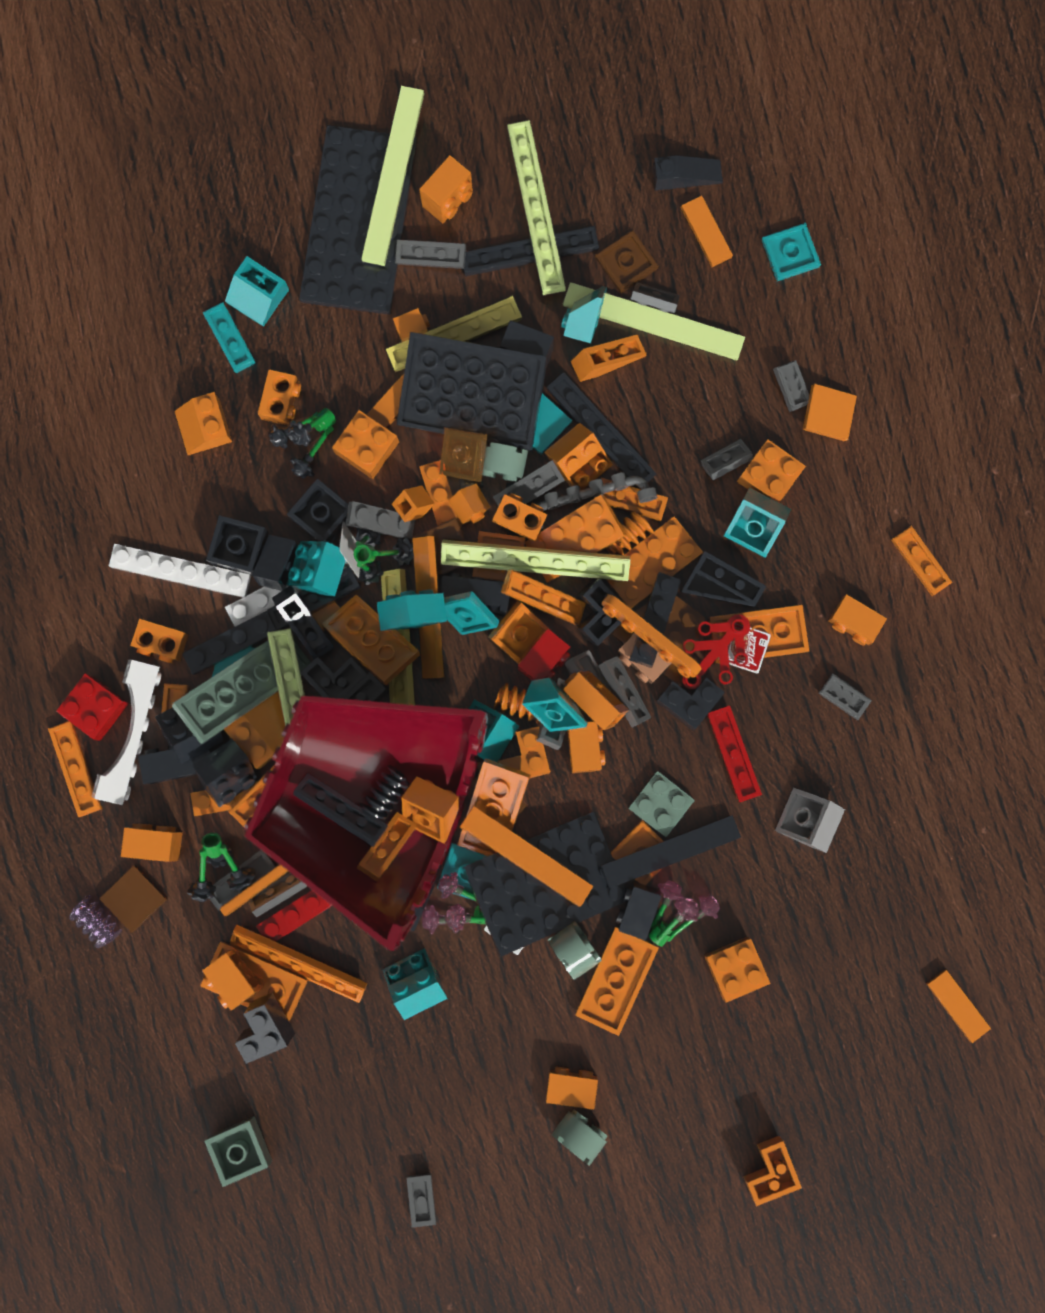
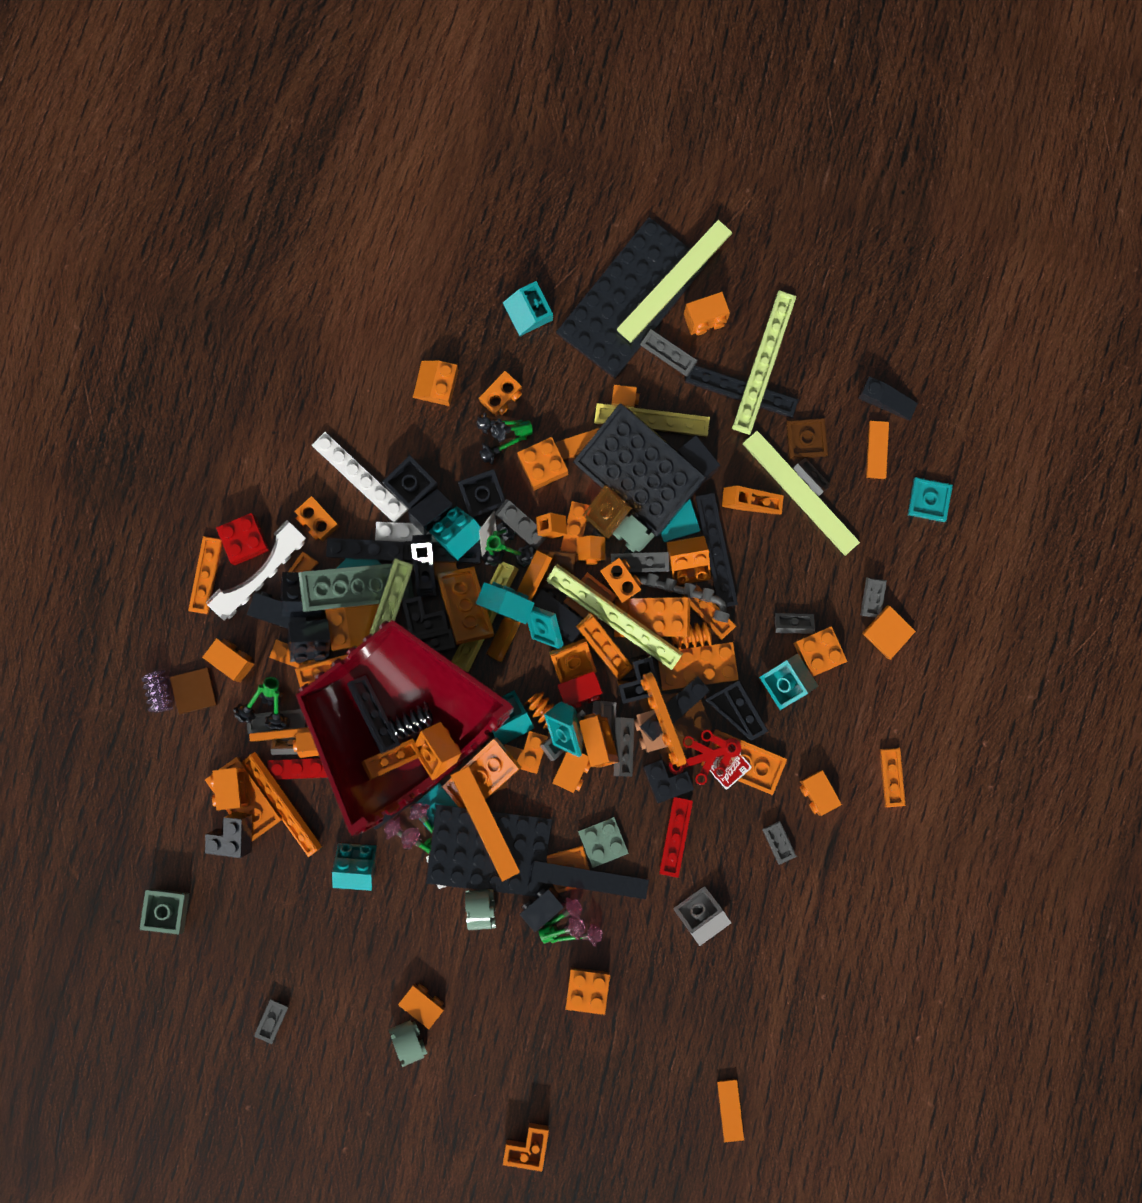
camera: 25 degrees right, 0 degrees up
(229, 337) = (490, 330): teal tile -> none
(286, 885) = (305, 745): none -> orange brick
(583, 318) = (750, 462): slope -> none
(616, 981) = (497, 949): orange plate -> none

